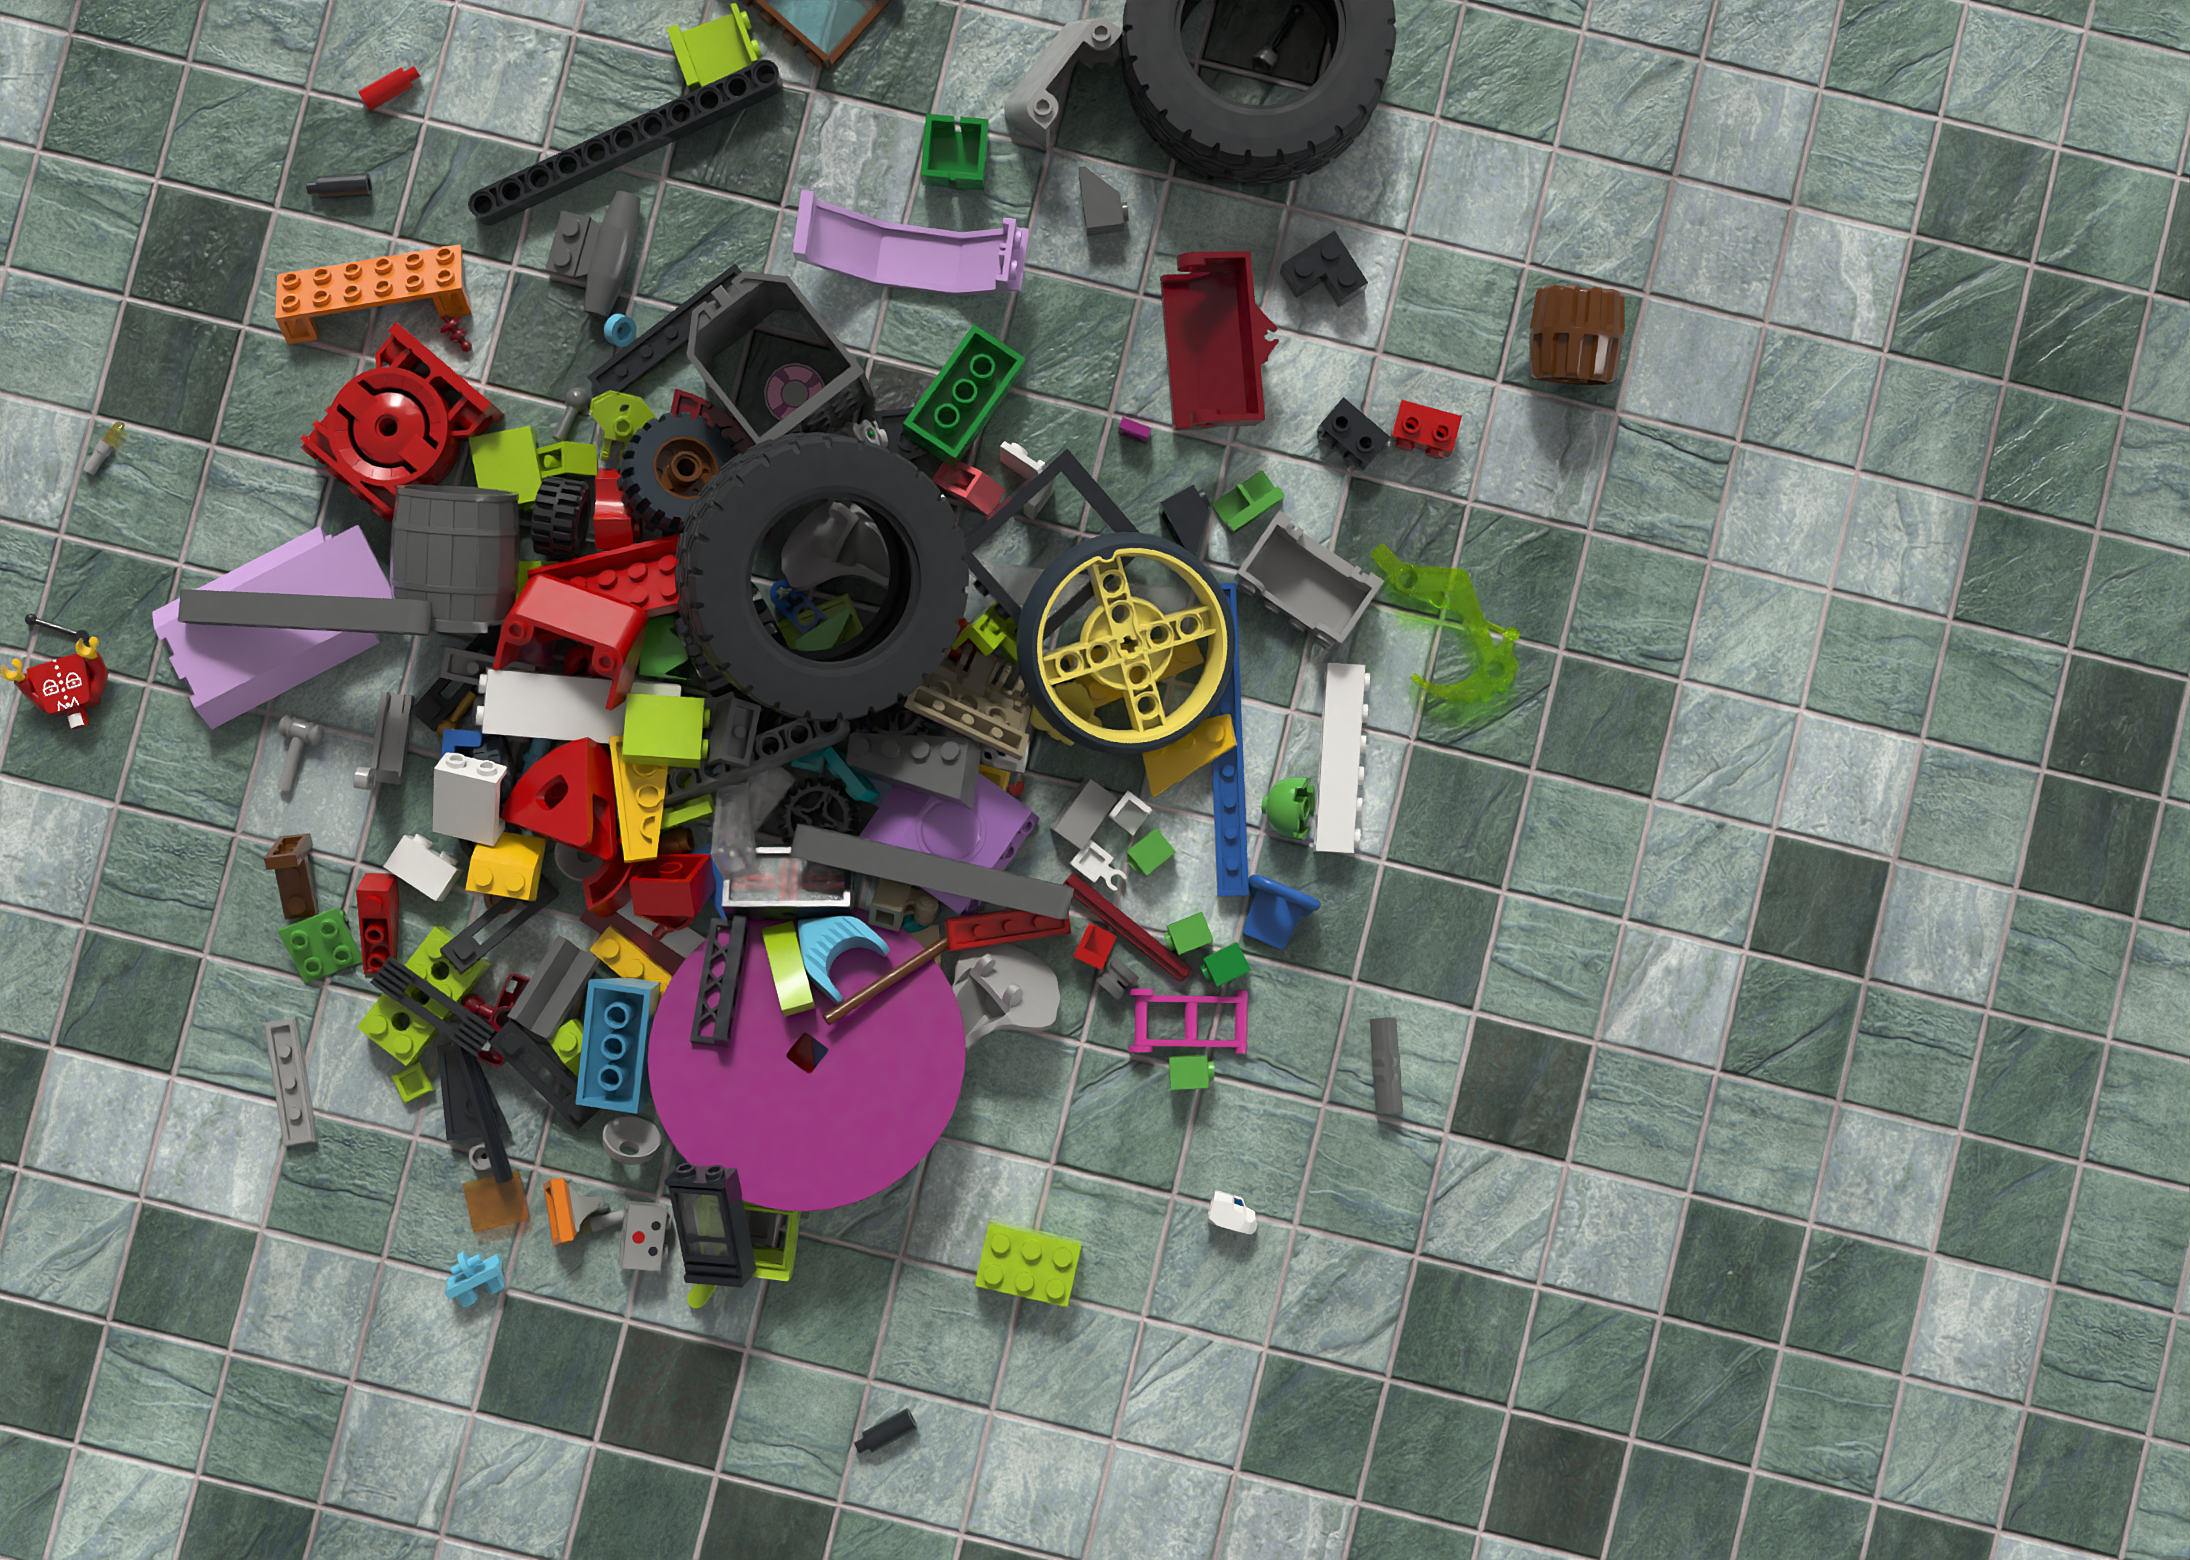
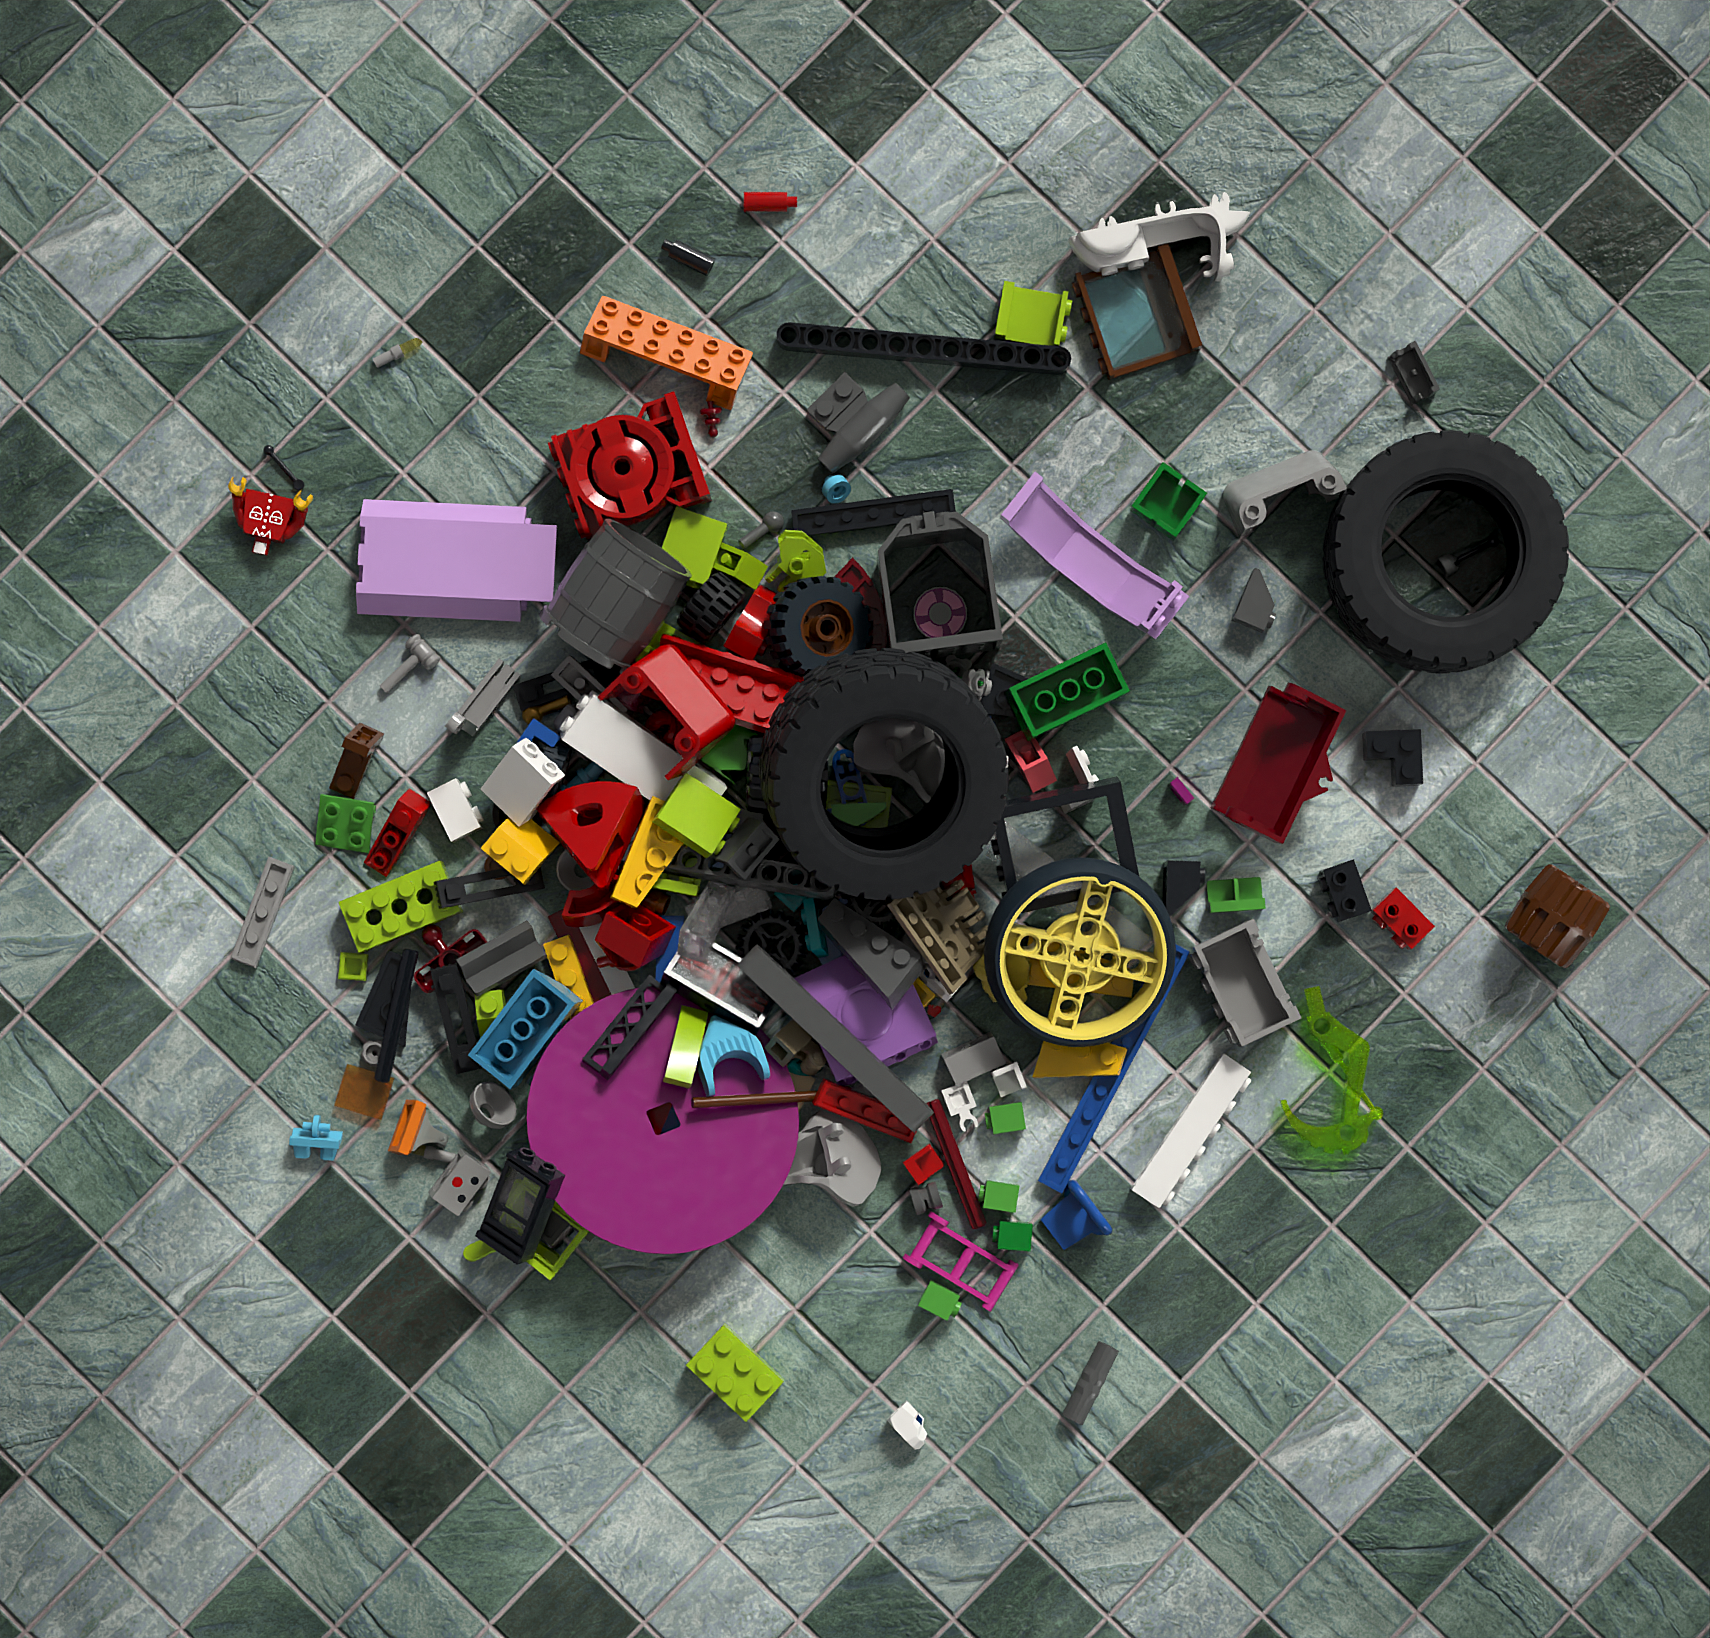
camera: 35 degrees right, 0 degrees up
(305, 612) = (483, 574): dark grey beam -> none
(395, 978) = (388, 884): black container -> none
(886, 1431) = (555, 1436): black cylinder -> none
(991, 631) = (983, 883): lime panel -> none
(1289, 806) = (1131, 1145): bright green cylinder -> none

